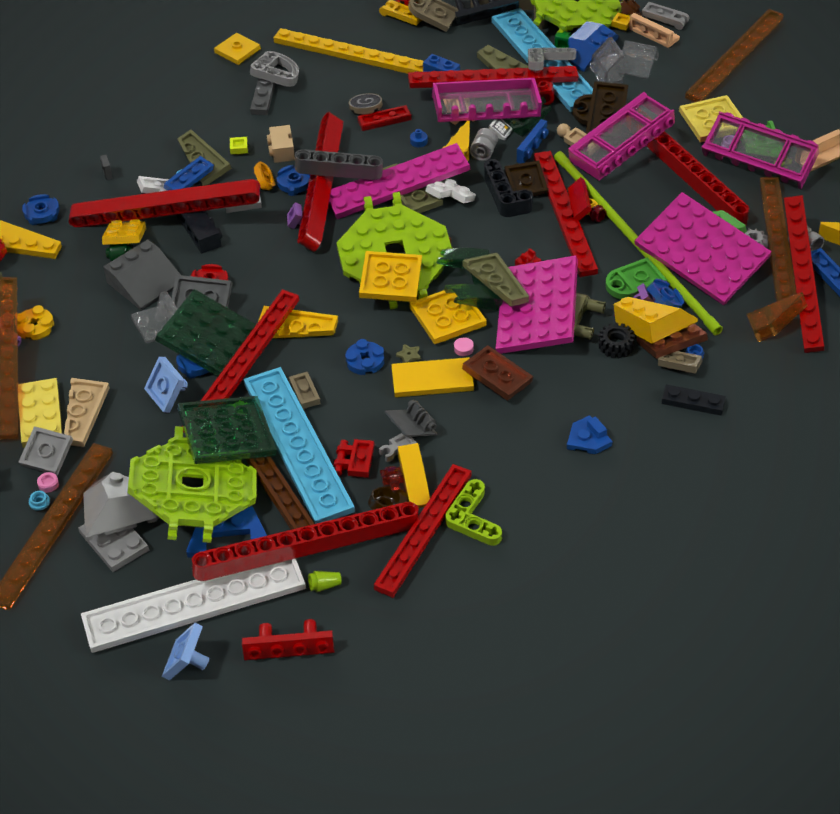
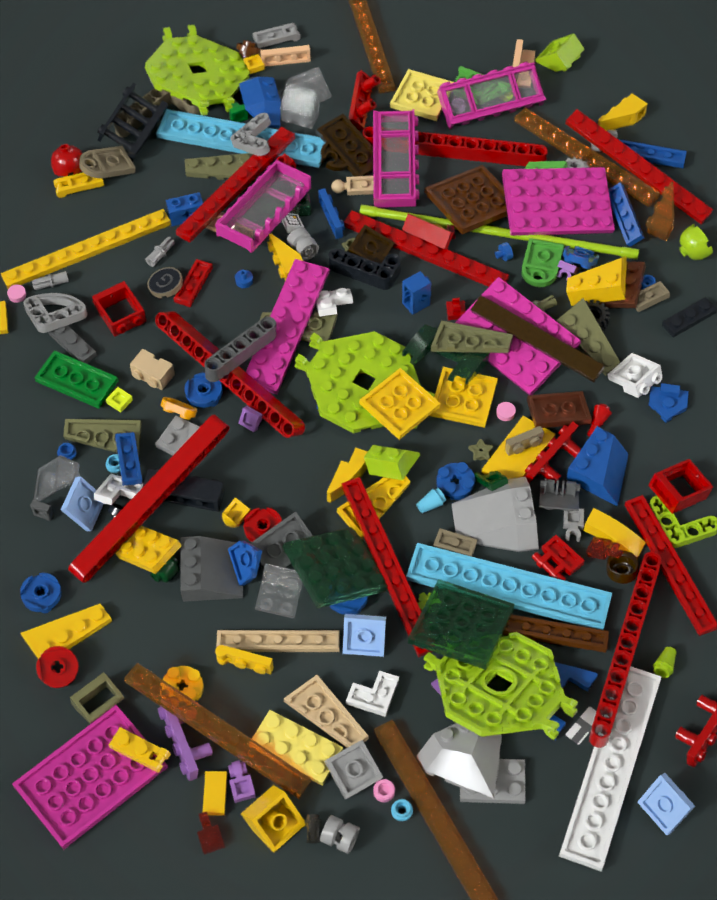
camera: 50 degrees left, 10 degrees up
(83, 338) = (244, 659): none -> yellow plate
(118, 347) = (280, 640): none -> tan tile
(124, 430) = (376, 699): none -> white plate
(125, 176) = (81, 504): none -> light blue tile
(139, 157) = (55, 477): none -> clear slope
(163, 285) = (245, 561): none -> blue plate
(168, 149) = (67, 450): none -> blue plate
(202, 257) = (235, 513): none -> yellow plate
(232, 115) = (76, 379): none -> green plate
(274, 45) = (16, 293): none -> bright pink tile
(302, 53) = (50, 280): none -> light grey axle
(309, 294) = (346, 472): none -> yellow slope
(311, 85) = (119, 292): none -> red window
(332, 353) = (431, 501): none -> medium azure cone
(335, 304) = (390, 462): none -> lime slope
(354, 397) = (499, 517): none -> light grey wedge
(382, 373) = (491, 481): none -> dark green tile
(391, 85) = (159, 251): none -> light grey axle
(440, 367) = (523, 441): none -> dark tan plate
(446, 392) = (562, 442): none -> red plate
(472, 429) = (600, 466): none -> blue wedge
(509, 225) = (416, 292): none -> blue brick
(511, 475) = (670, 496): none -> red window
(521, 402) = (600, 415): none -> red cone
(542, 313) = (537, 338): none -> dark brown tile
(588, 346) = (593, 343): none -> olive wing
(588, 399) = (636, 375): none -> white plate
(616, 252) = (505, 251): none -> blue tile
(637, 200) = (469, 199): none -> reddish brown plate
(668, 87) = (361, 99): none -> red plate
(746, 298) = (625, 215): none -> blue plate
(768, 354) = (694, 244): none -> lime cylinder

